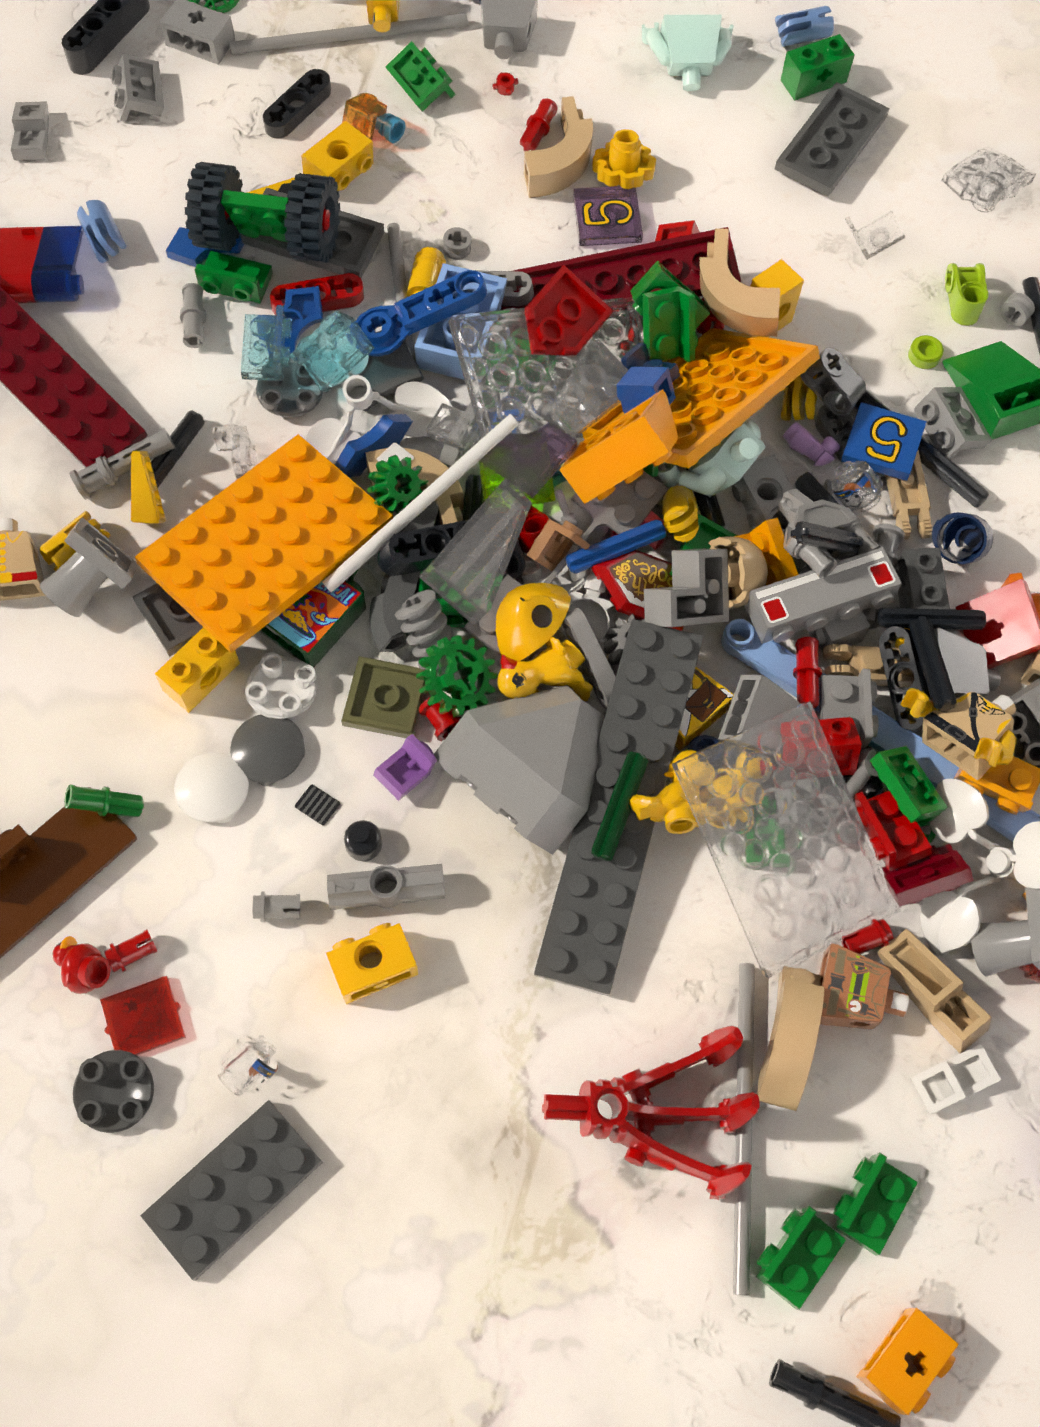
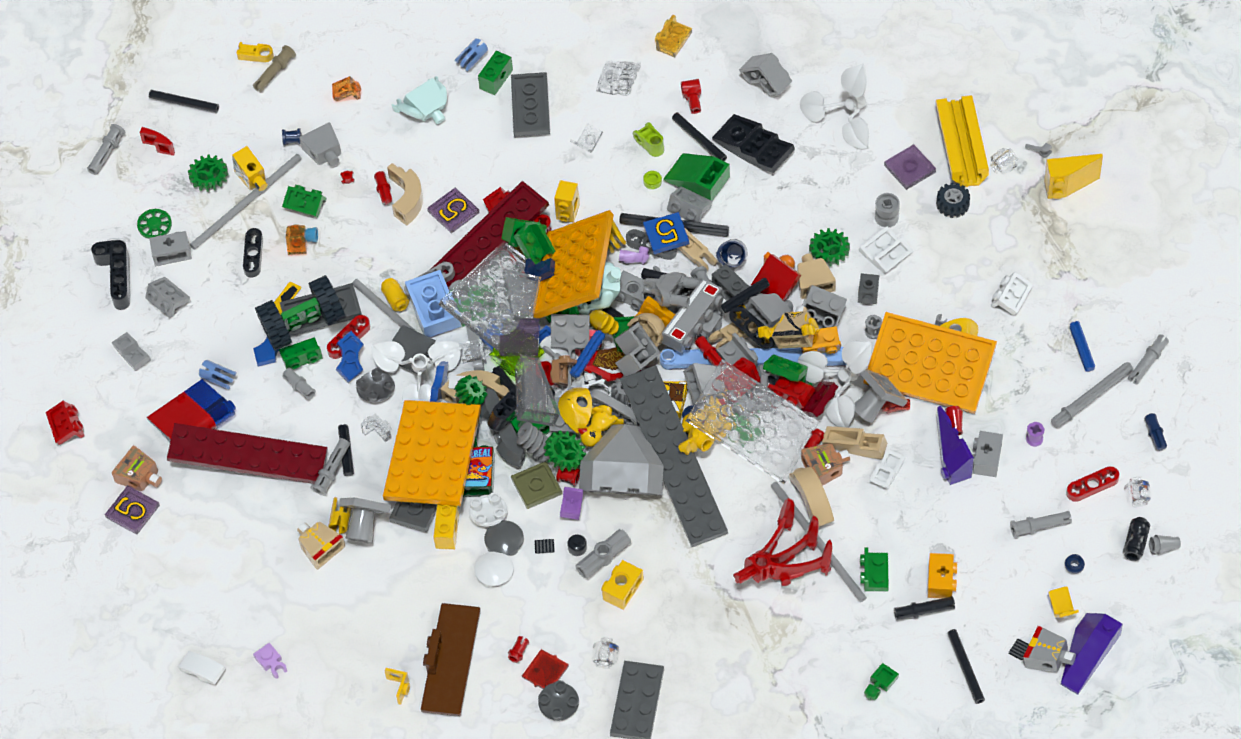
camera: 30 degrees left, 10 degrees down
(81, 966) = (504, 665): red animal -> none
(103, 801) = (456, 601): green axle -> none
(145, 497) = (355, 471): yellow slope -> none
(264, 346) = (351, 372): clear light blue bracket -> none
(275, 906) = (564, 592): light grey pin -> none
(332, 350) = (388, 353): clear light blue bracket -> none
(340, 155) = (302, 266): yellow brick -> none
(419, 311) = (411, 313): blue beam -> none
(420, 503) = (491, 390): white piece -> none
(453, 251) = (390, 273): light grey bush -> none
(564, 316) = (485, 268): red tile -> none
(619, 807) = (675, 454): dark green axle -> none
(622, 449) = (562, 308): light orange slope -> none
(624, 161) = (441, 179): yellow plant -> none
(641, 384) = (549, 278): blue brick -> none
(732, 302) = (552, 214): tan arch -> none
(826, 537) = (678, 289): black axle -> none
(835, 383) = (626, 221): dark grey piece -> none
(857, 486) = (669, 260): clear head -> none
(874, 1204) = (889, 533): green bracket -> none
(932, 664) = (759, 312): black axle -> none
(1017, 309) = (679, 133): light grey bush -> none

